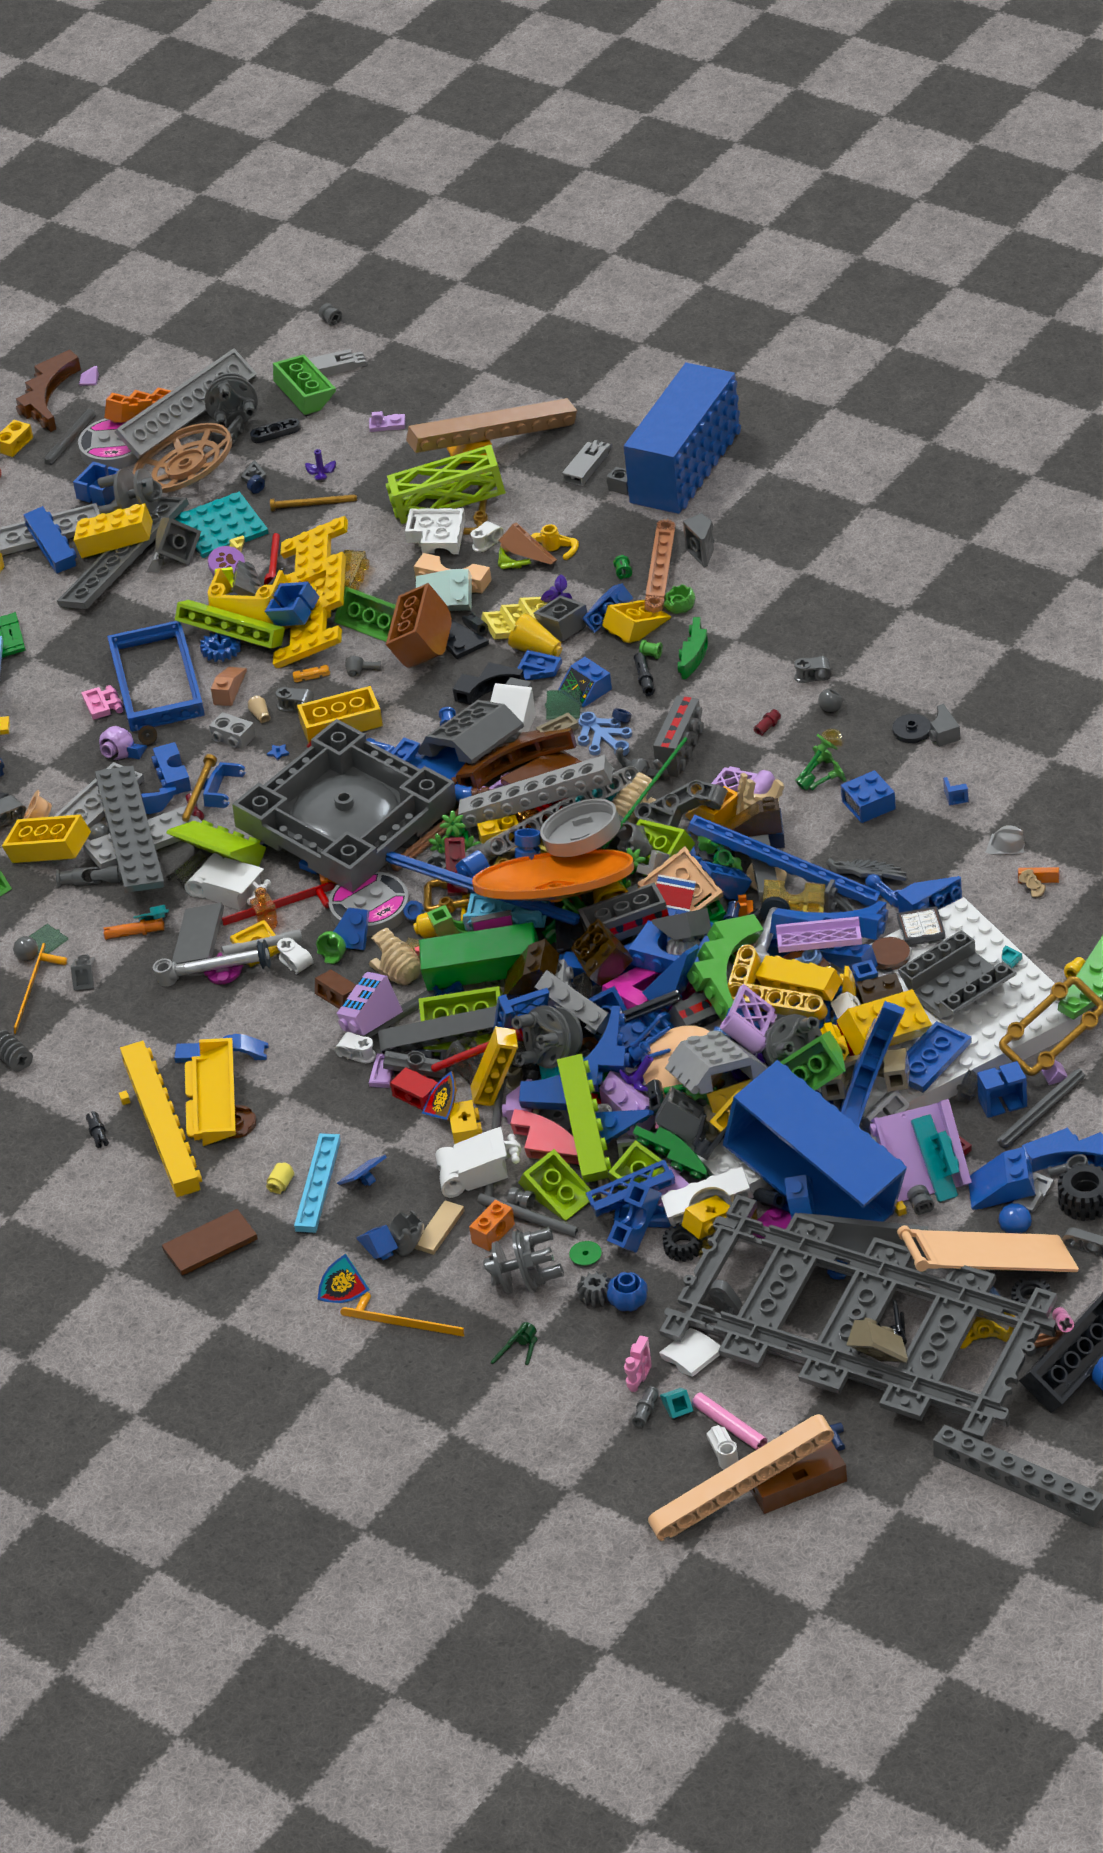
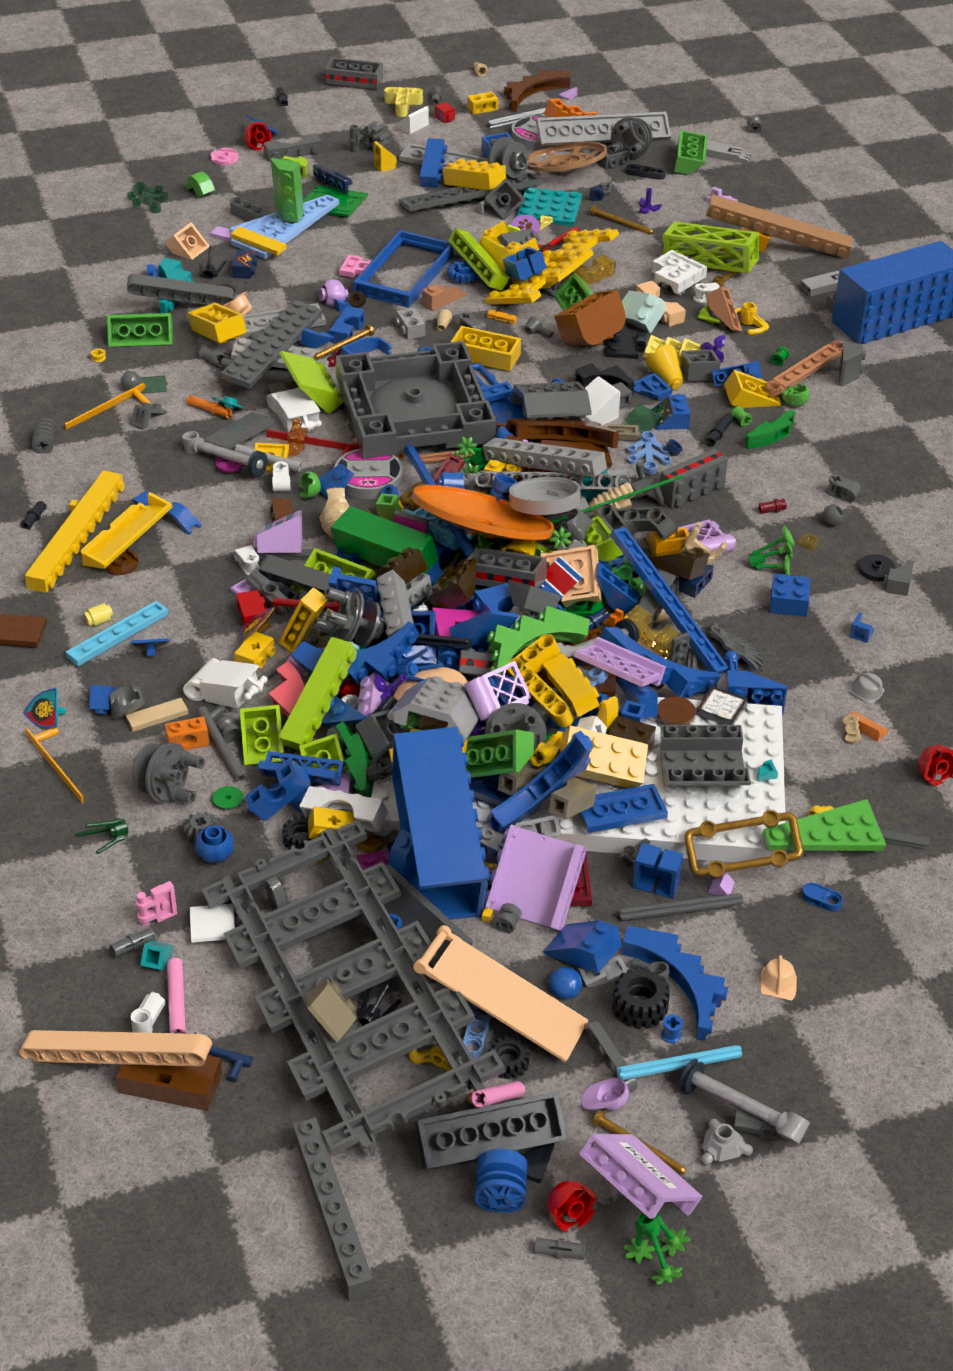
camera: 30 degrees right, 0 degrees up
(937, 1156) = (544, 890): teal bracket -> none

